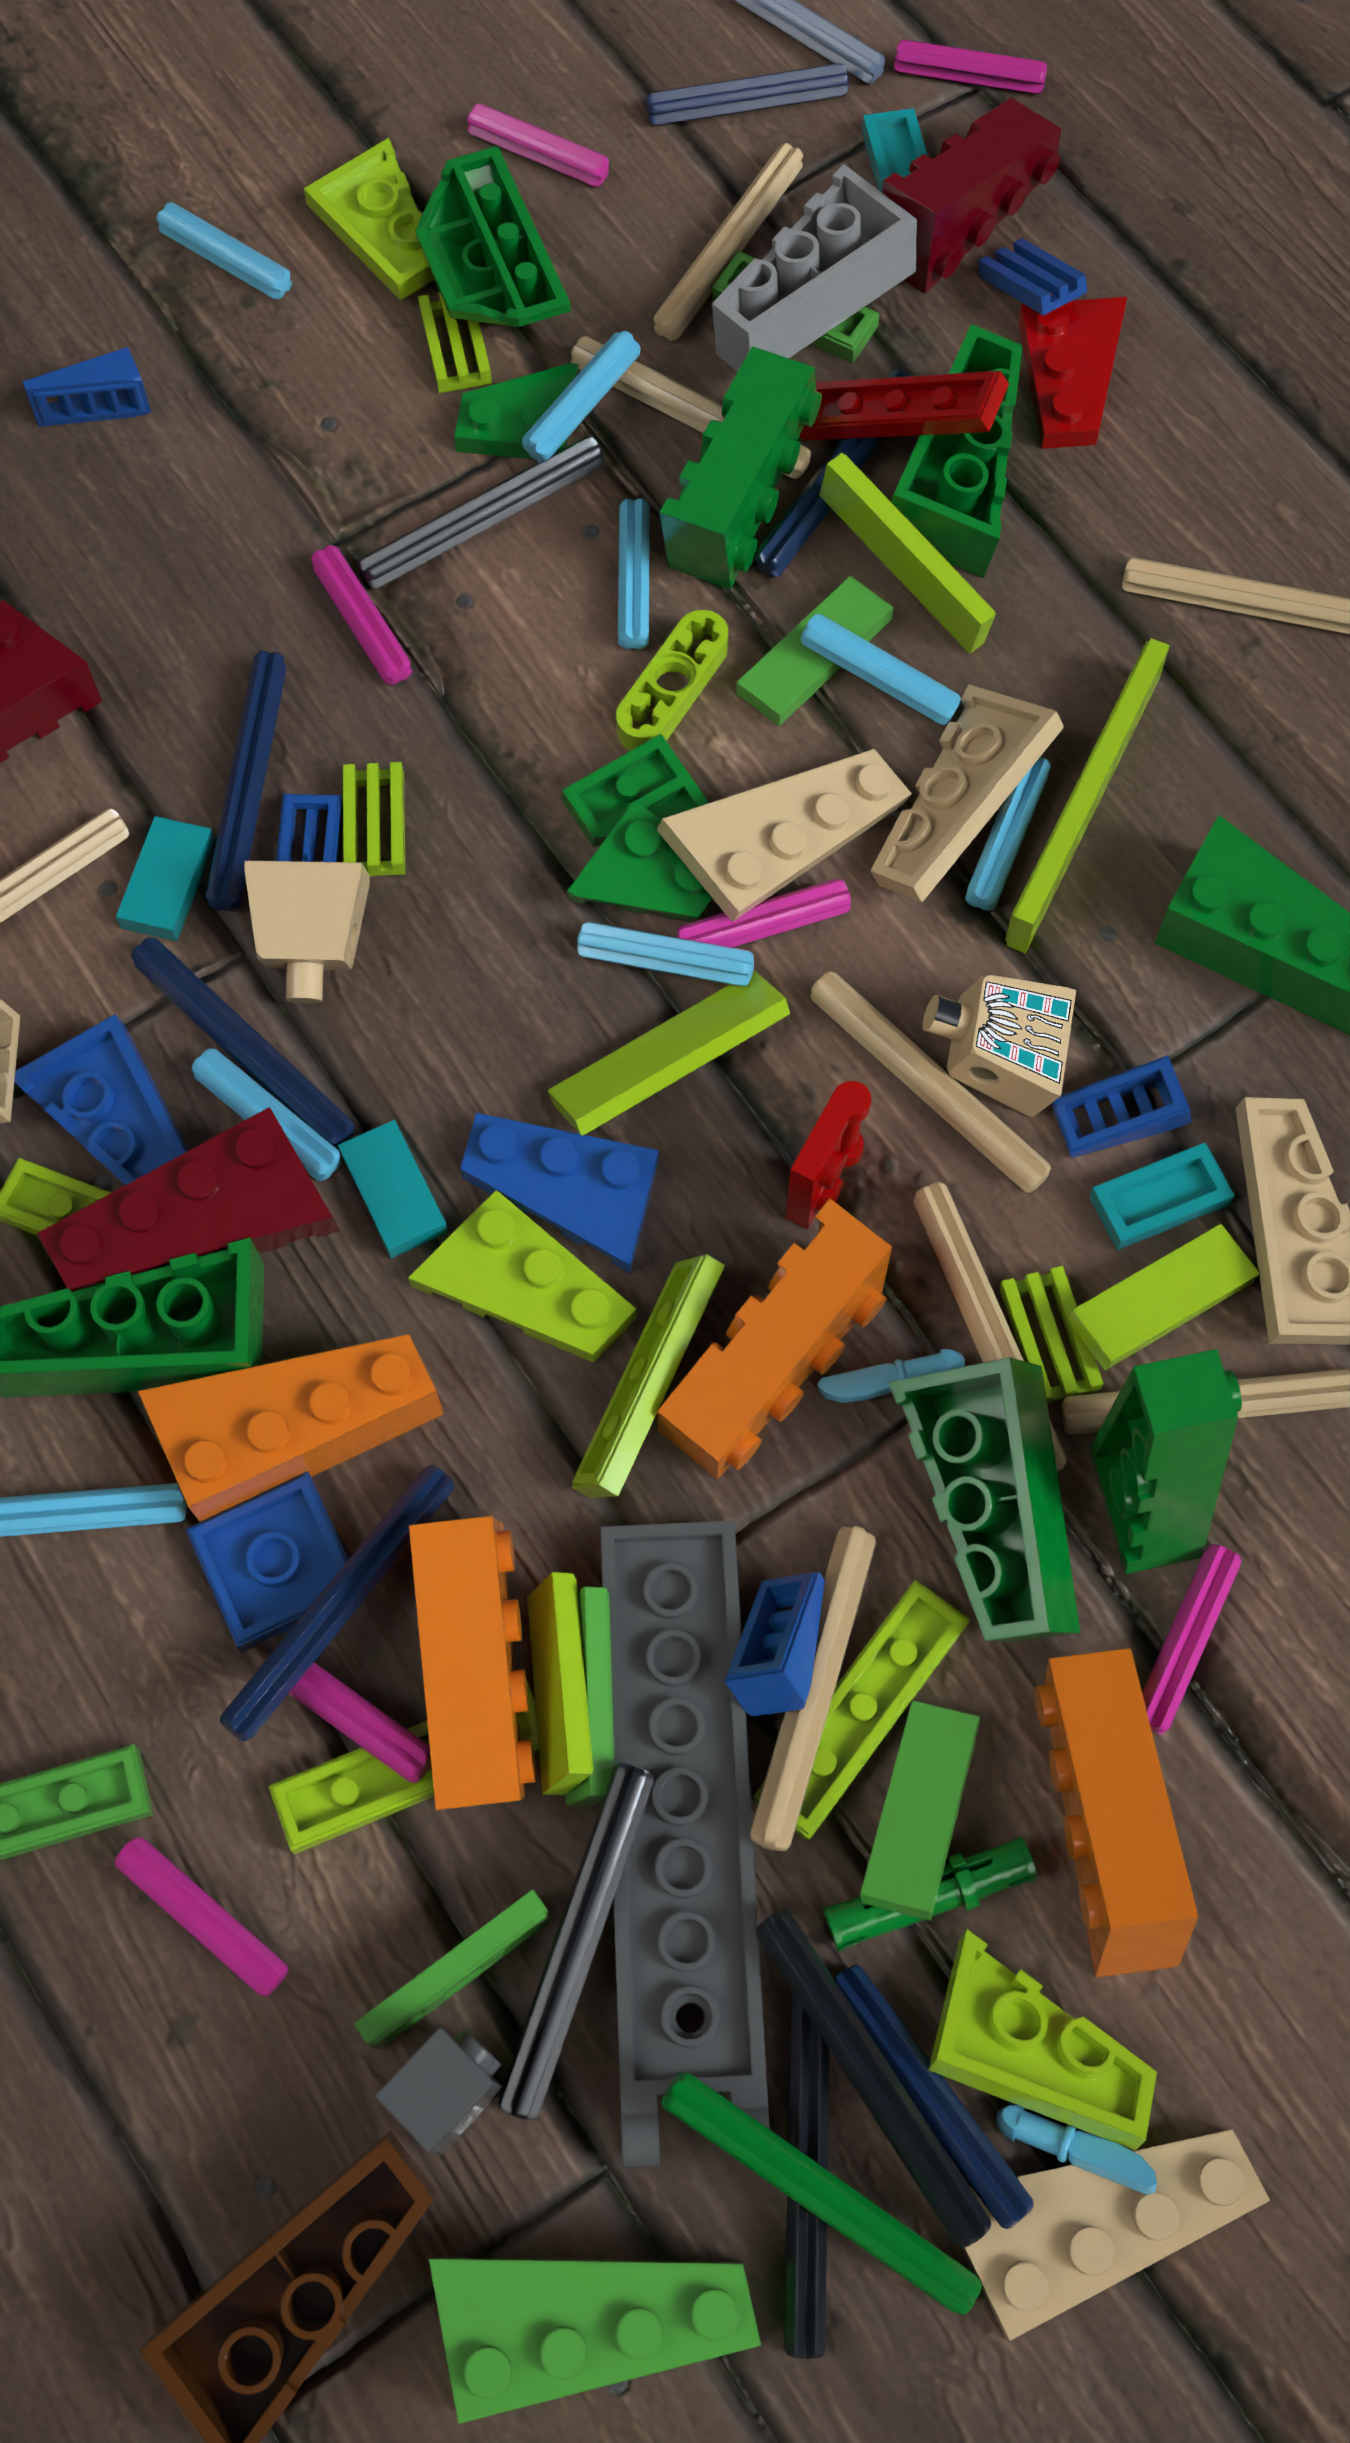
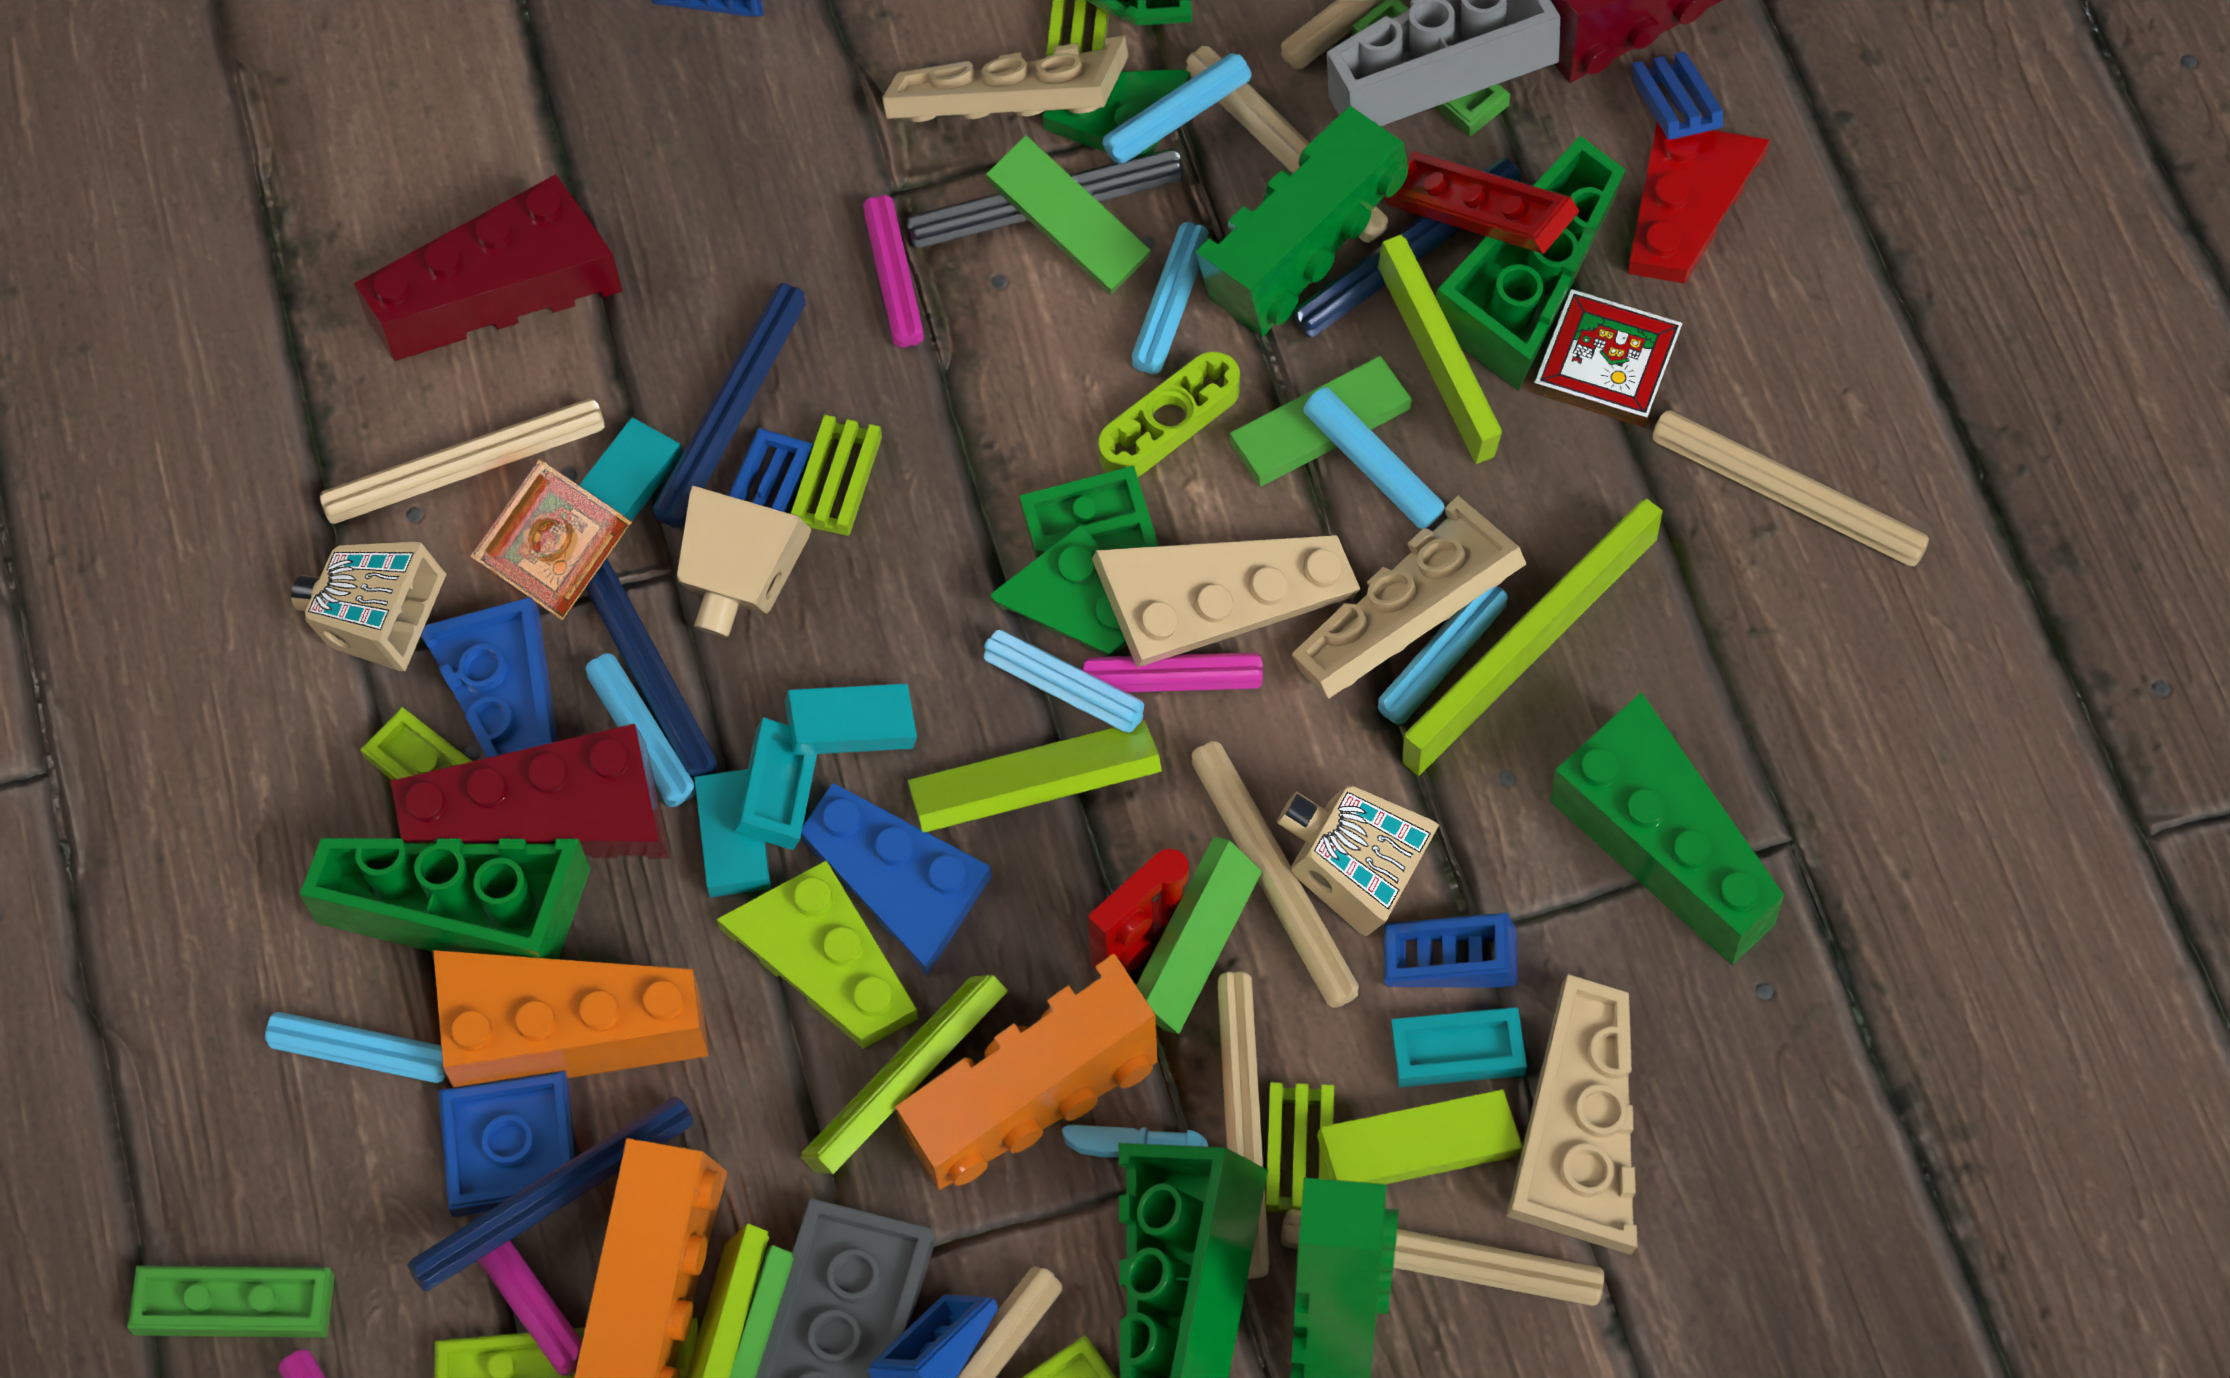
camera: 20 degrees right, 5 degrees down
(115, 952) = (551, 539): none -> clear orange tile
(413, 413) = (1009, 85): none -> tan wing
(422, 1129) = (775, 788): none -> teal tile
(471, 1047) = (850, 719): none -> teal tile
(512, 519) = (1068, 215): none -> bright green tile
(884, 1150) = (1197, 933): none -> bright green tile
(1057, 527) = (1607, 358): none -> tile

